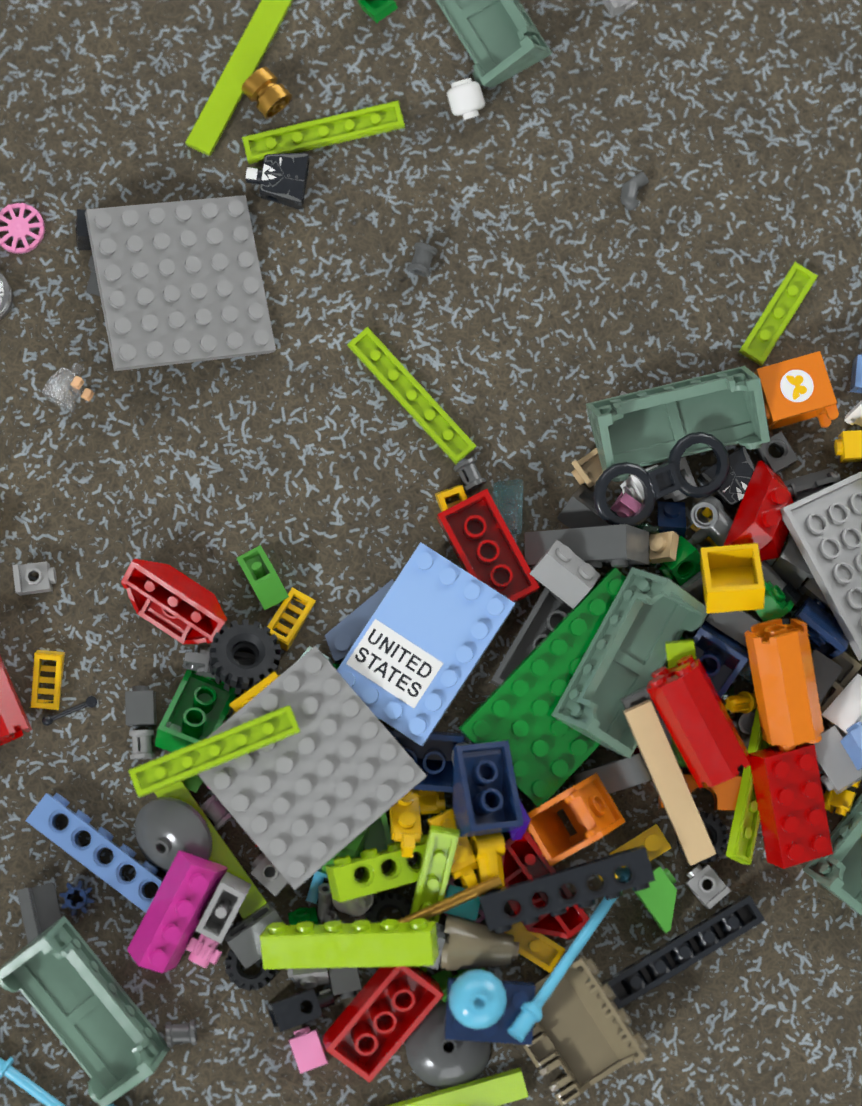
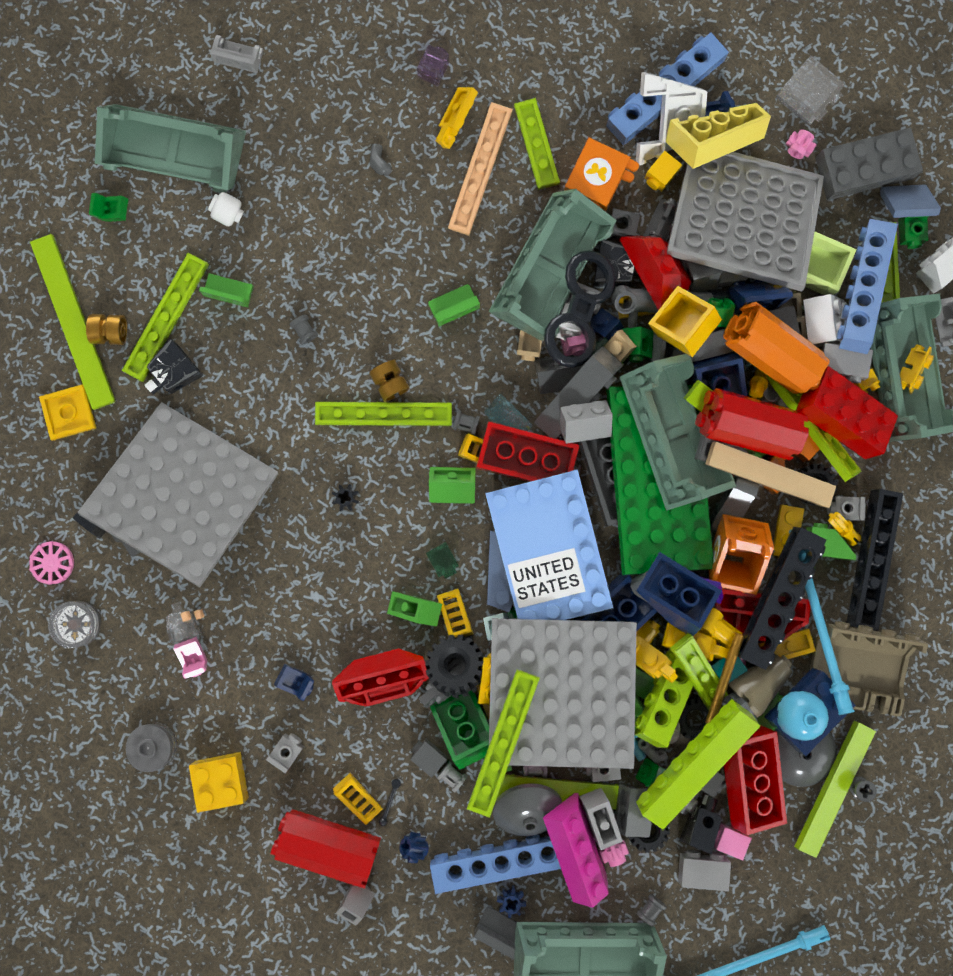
camera: 45 degrees left, 5 degrees up
(44, 421) = (191, 657): none -> bright pink bracket
(49, 766) = (413, 847): none -> dark blue gear
(102, 530) = (295, 682): none -> dark blue bracket
(163, 124) = (67, 412): none -> yellow tile
(259, 1049) = (704, 871): none -> light grey brick
(311, 423) = (347, 504): none -> black gear
(328, 564) = (443, 560): none -> clear green bracket
(396, 163) = (227, 290): none -> bright green panel
(402, 512) = (451, 485): none -> bright green panel
(439, 379) = (395, 384): none -> pearl gold wheel
(565, 370) = (454, 305): none -> bright green panel
(685, 897) = (844, 528): none -> yellow axle
(709, 284) = (480, 168): none -> light nougat tile
(735, 220) = (455, 115): none -> yellow hinge
(762, 161) = (433, 65): none -> clear purple brick

